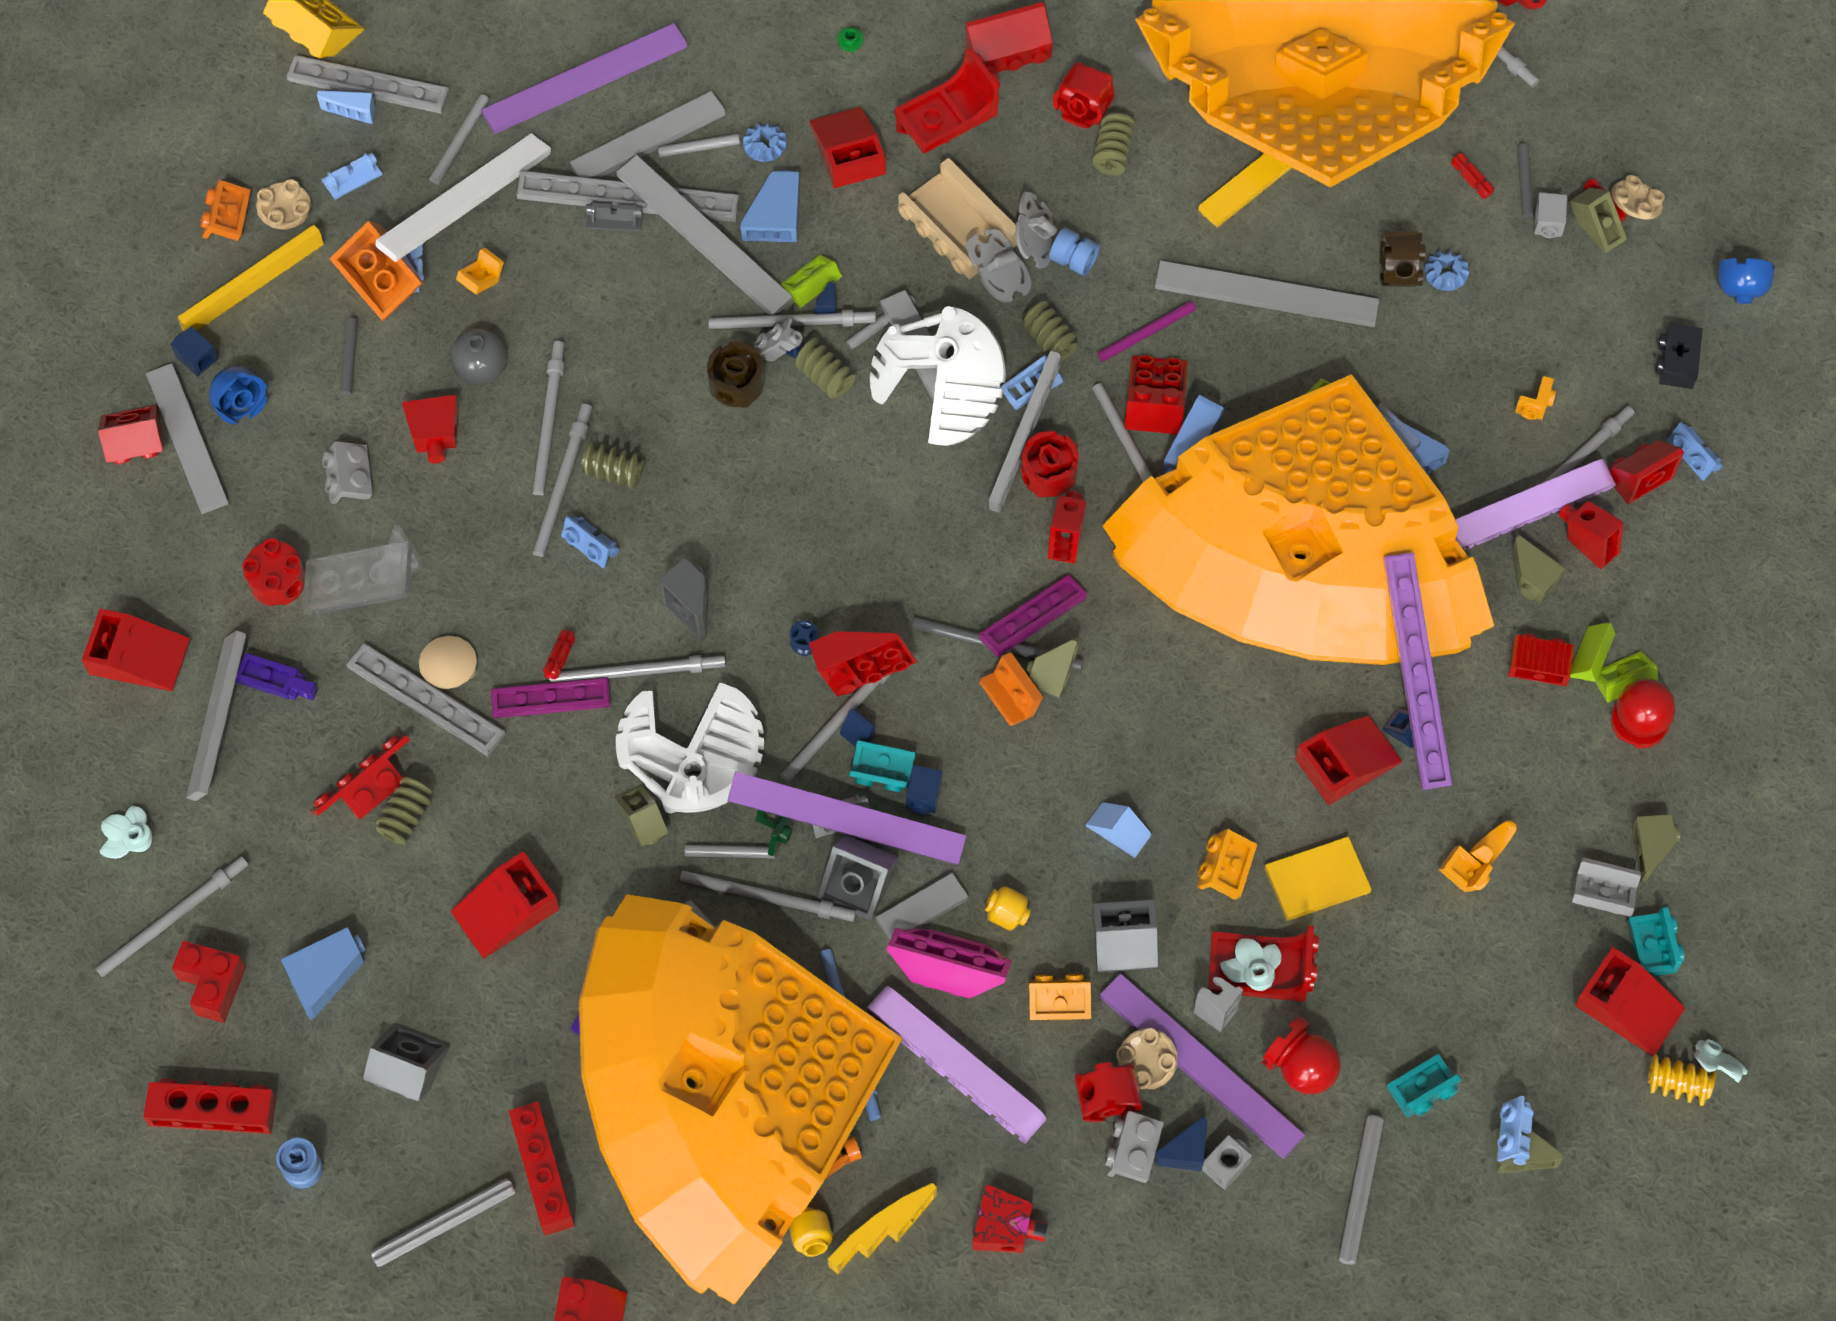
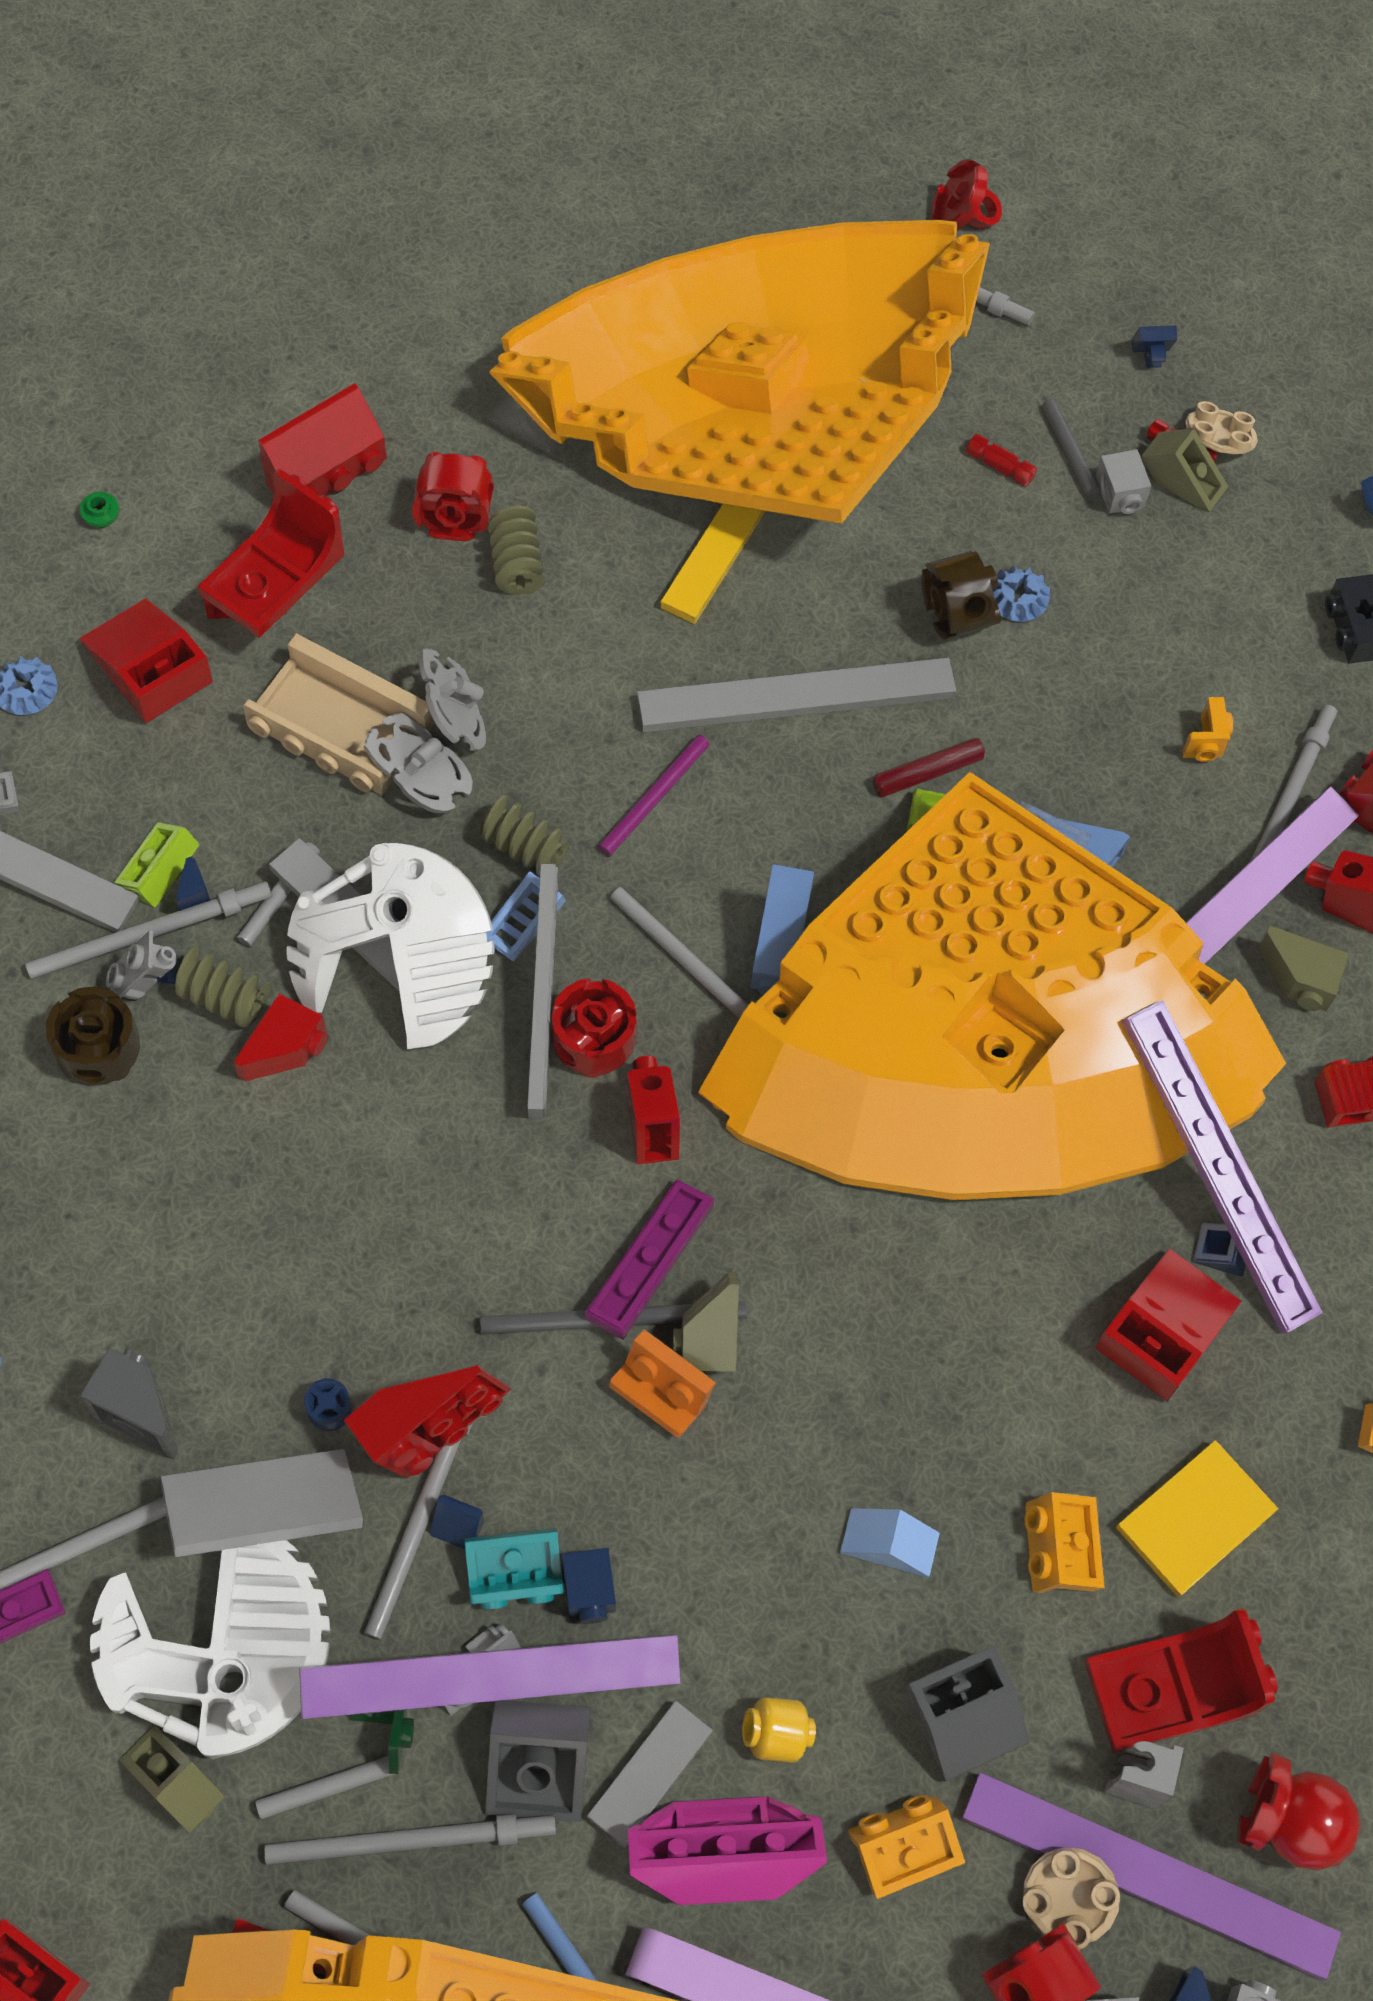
camera: 25 degrees left, 0 degrees up
(744, 678) = (260, 1502): none -> light grey tile
(774, 210) = (70, 778): medium blue slope -> none
(850, 413) = (282, 1040): none -> red slope
(1072, 250) = (516, 713): medium blue wheel -> none
(1156, 394) = (703, 880): red slope -> none
(1252, 960) = (1163, 1686): light aqua plate -> none
(1336, 367) = (928, 767): none -> dark red axle
(1615, 123) = (1155, 343): none -> dark blue tile

